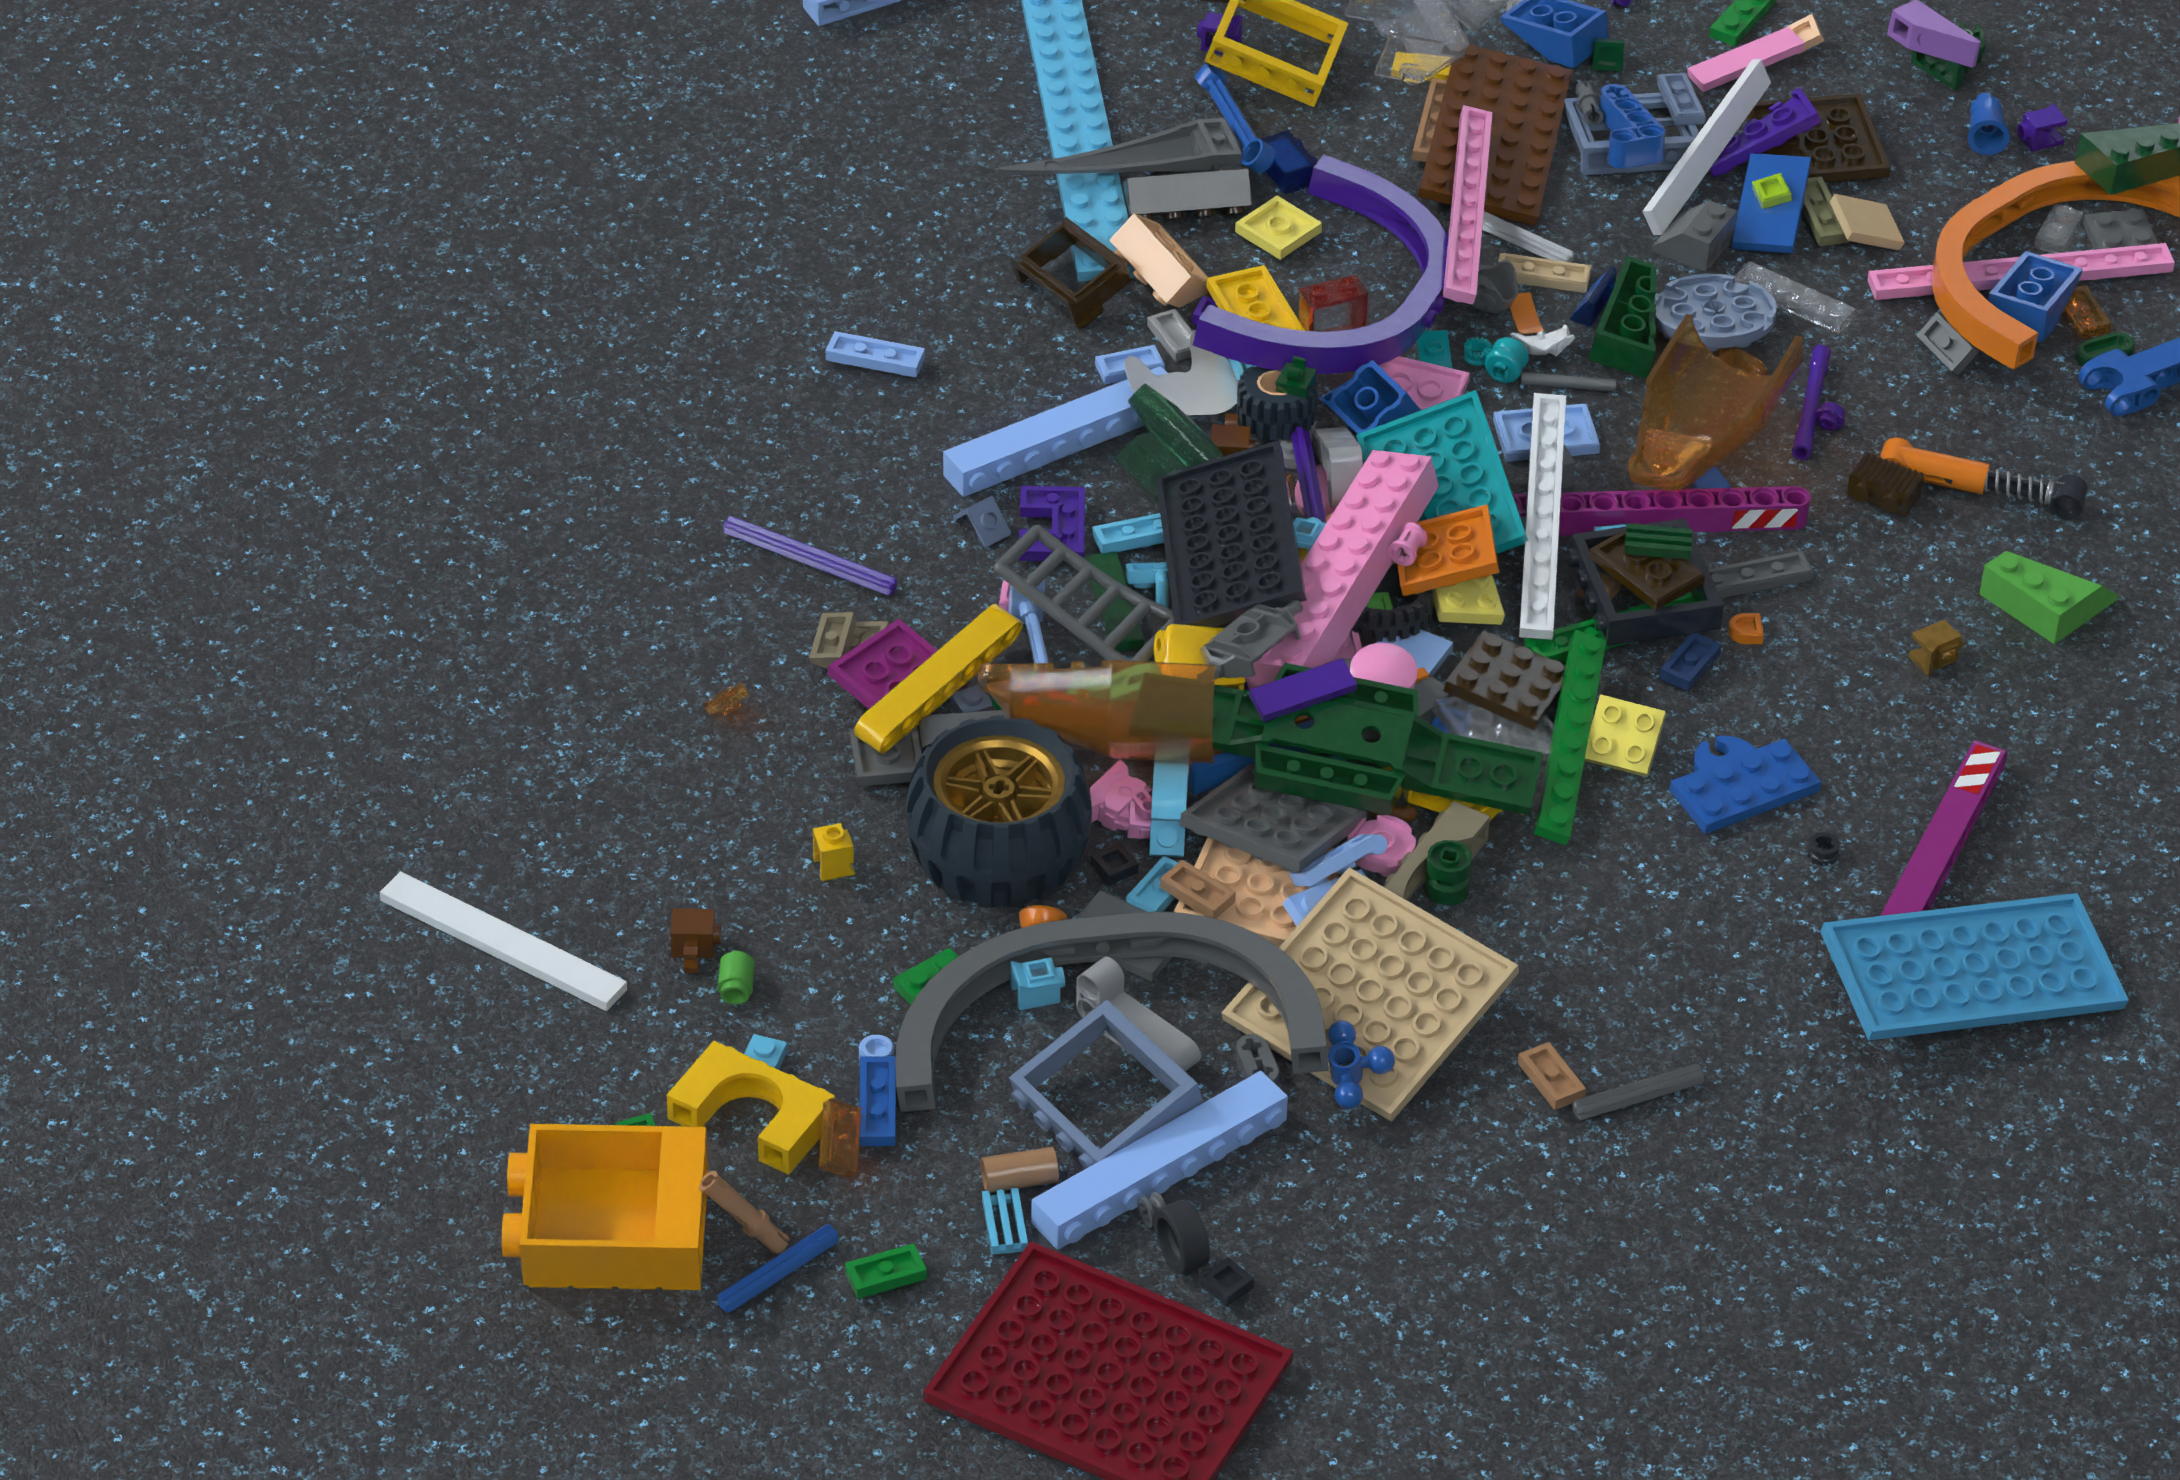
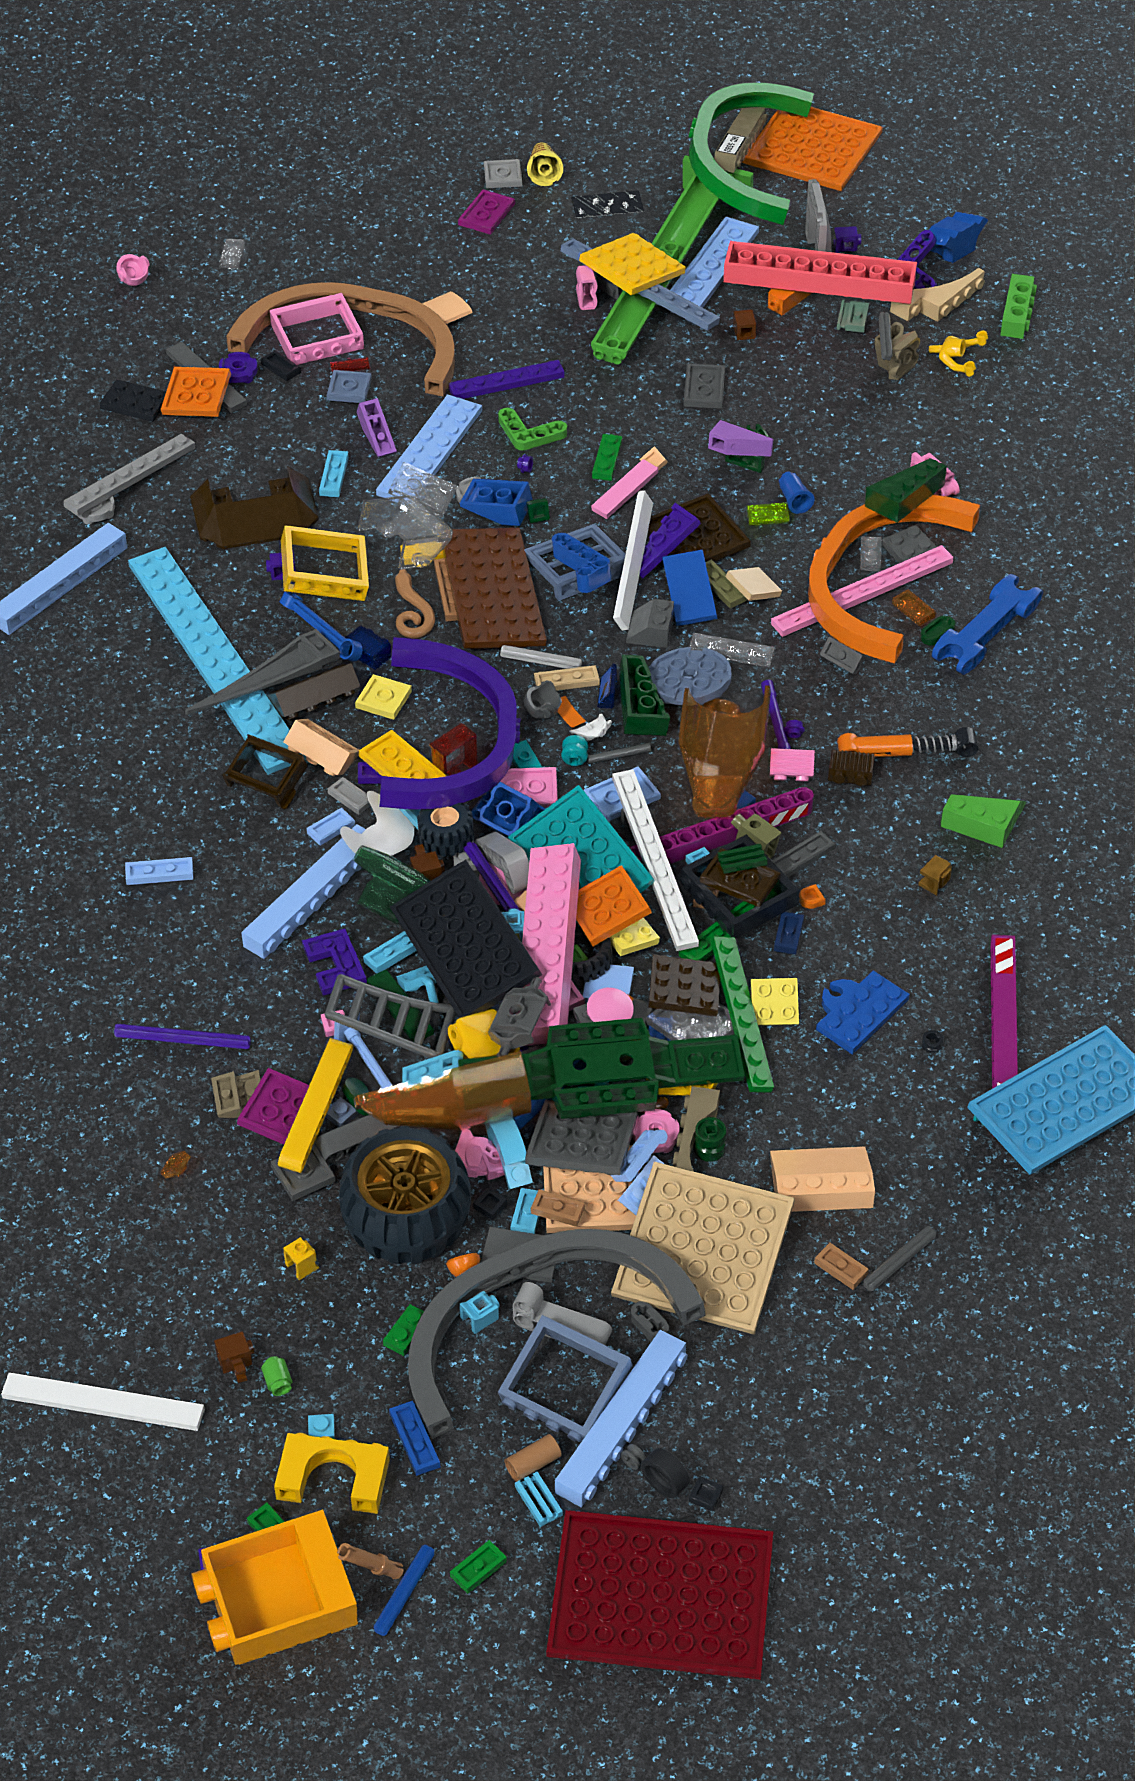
camera: 20 degrees left, 5 degrees up
(840, 1137) = (404, 1476): clear orange plate -> none
(876, 1046) = (394, 1397): light blue tile -> none
(986, 521) = (289, 971): sand blue bracket -> none
(1296, 378) = (456, 810): dark green tile -> none
(1303, 690) = (571, 1043): dark purple tile -> none
(1375, 107) = (404, 588): none -> medium nougat plant
(1379, 1060) = (734, 1296): blue piece -> none
(1407, 544) = (583, 910): bright pink bush -> none
(1467, 205) = (505, 648): bright pink plate -> none
(1476, 345) = (551, 743): teal bush -> none
(1581, 968) = (824, 1178): none -> light nougat slope
(1589, 103) = (544, 549): dark grey pin -> none
(1680, 99) = (599, 530): sand blue tile -> none
(1709, 526) = (759, 831): none -> olive torso
(1771, 191) = (688, 580): lime tile -> none
(1801, 456) = (792, 763): none -> bright pink brick
(1934, 141) = (767, 513): none -> clear neon green plate
(2036, 291) = (882, 603): blue slope -> none
(2039, 128) = (827, 485): dark purple window -> none

